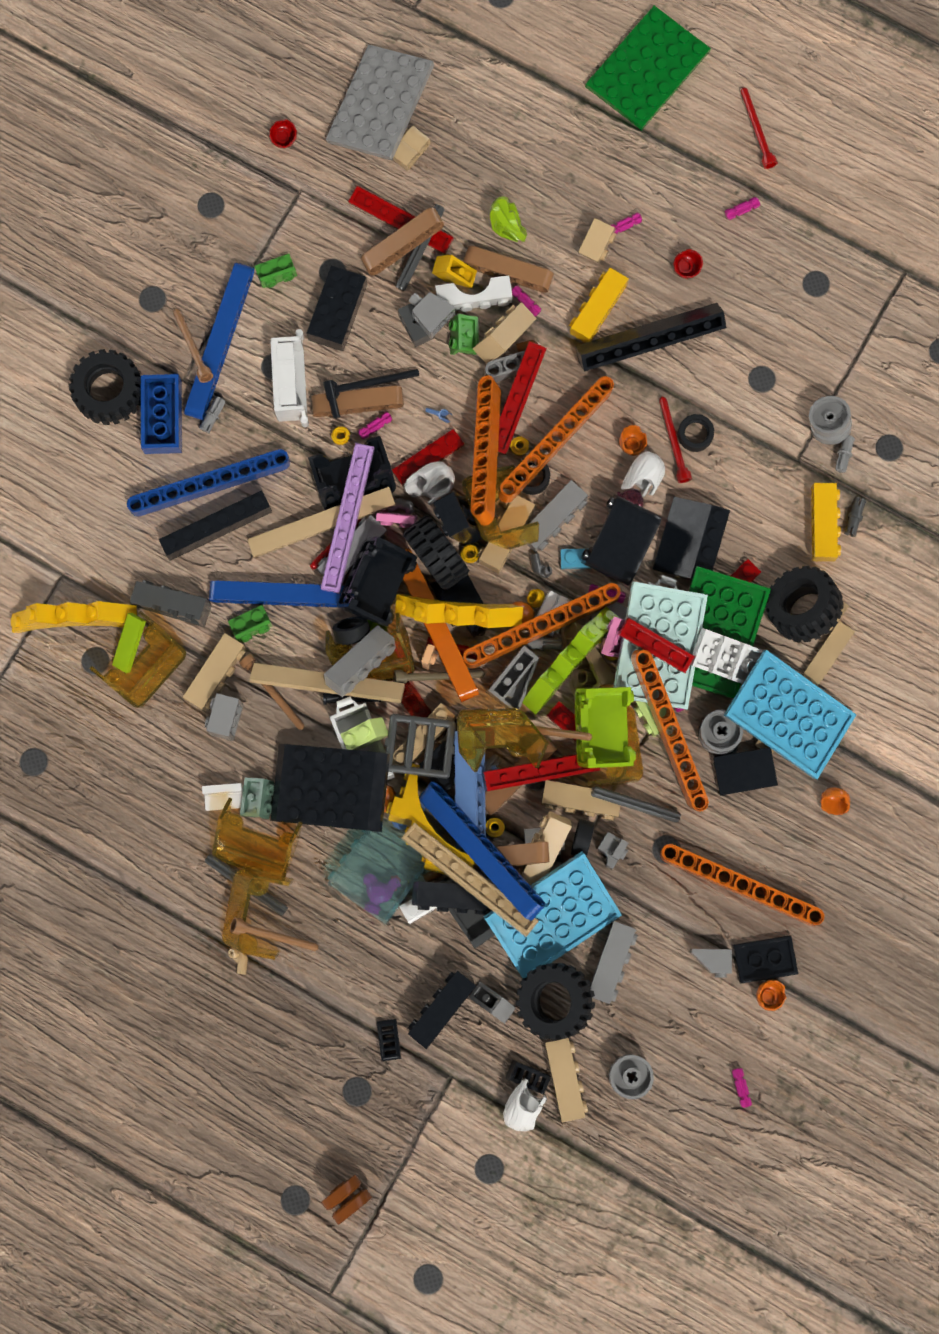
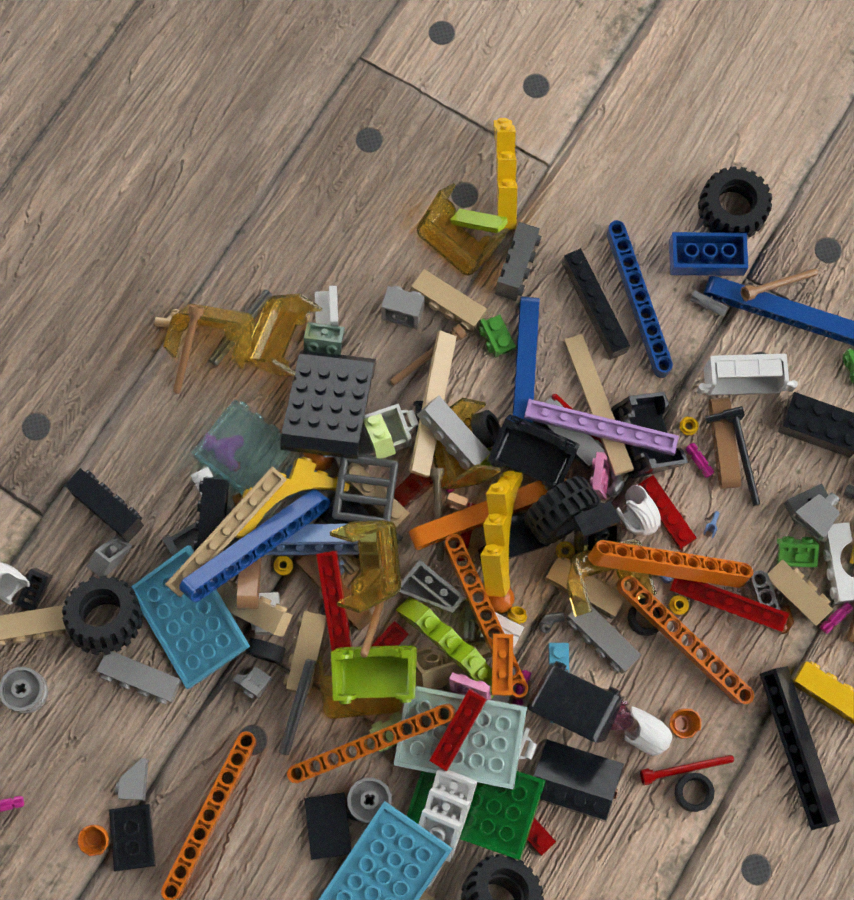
camera: 85 degrees right, 5 degrees down
(388, 1057) = (81, 450): black slope -> none
(591, 606) = (502, 664): none -> orange plate

